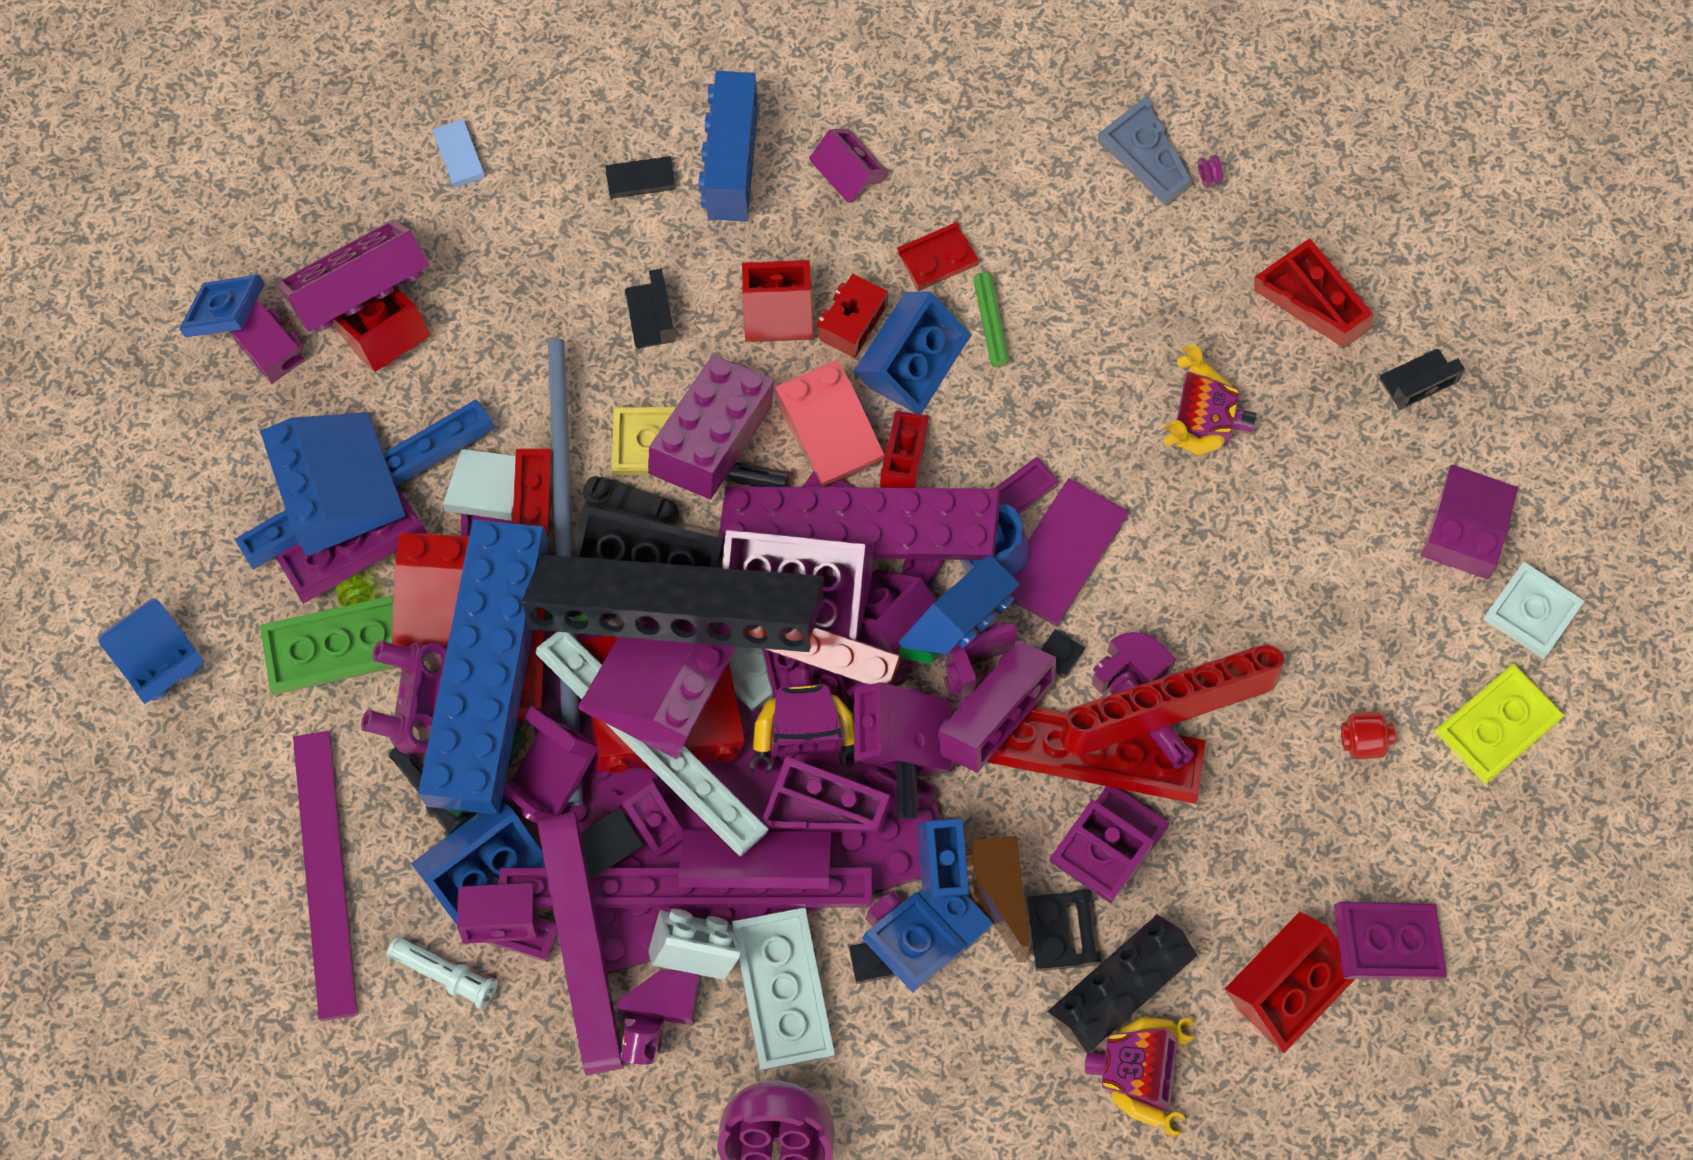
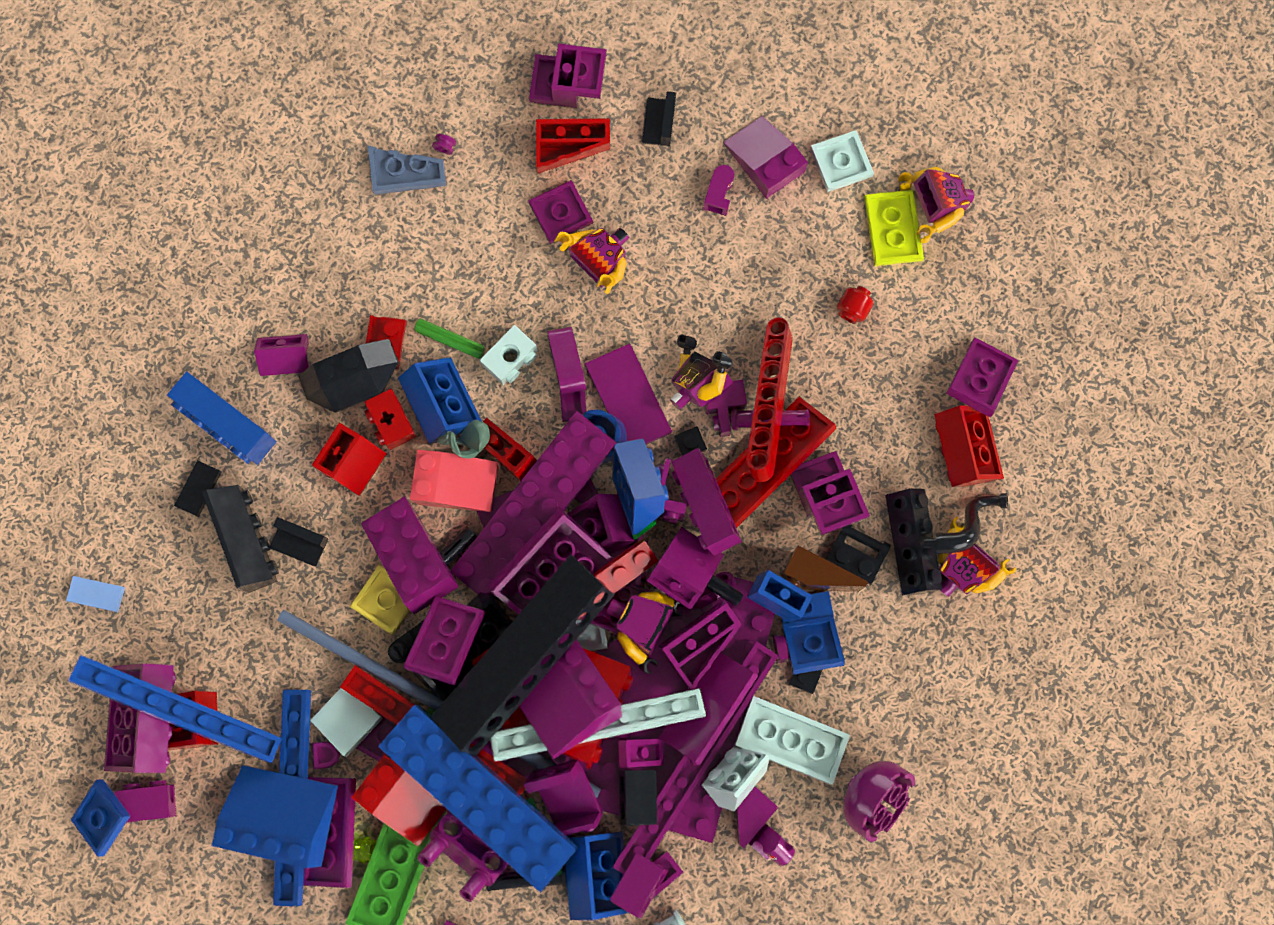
camera: 60 degrees left, 10 degrees up
(381, 294) = (174, 709): none -> blue plate
(431, 489) = (324, 755): none -> magenta tile
(580, 943) = (691, 845): magenta beam -> none
(613, 248) = (240, 537): none -> black slope
(637, 515) = (444, 640): none -> magenta tile
(874, 242) = (350, 375): none -> black wedge
(894, 414) = (474, 437): none -> sand green piece
(1005, 377) = (512, 342): none -> light aqua brick
(1054, 453) = (566, 360): none -> magenta beam
(1142, 608) = (698, 376): none -> torso
(1162, 1029) = (966, 538): none -> black animal
(1230, 340) = (560, 211): none -> magenta tile
(1387, 491) = (720, 183): none -> magenta leg
(1390, 242) = (567, 75): none -> magenta bracket
(1576, 751) = (941, 198): none -> torso

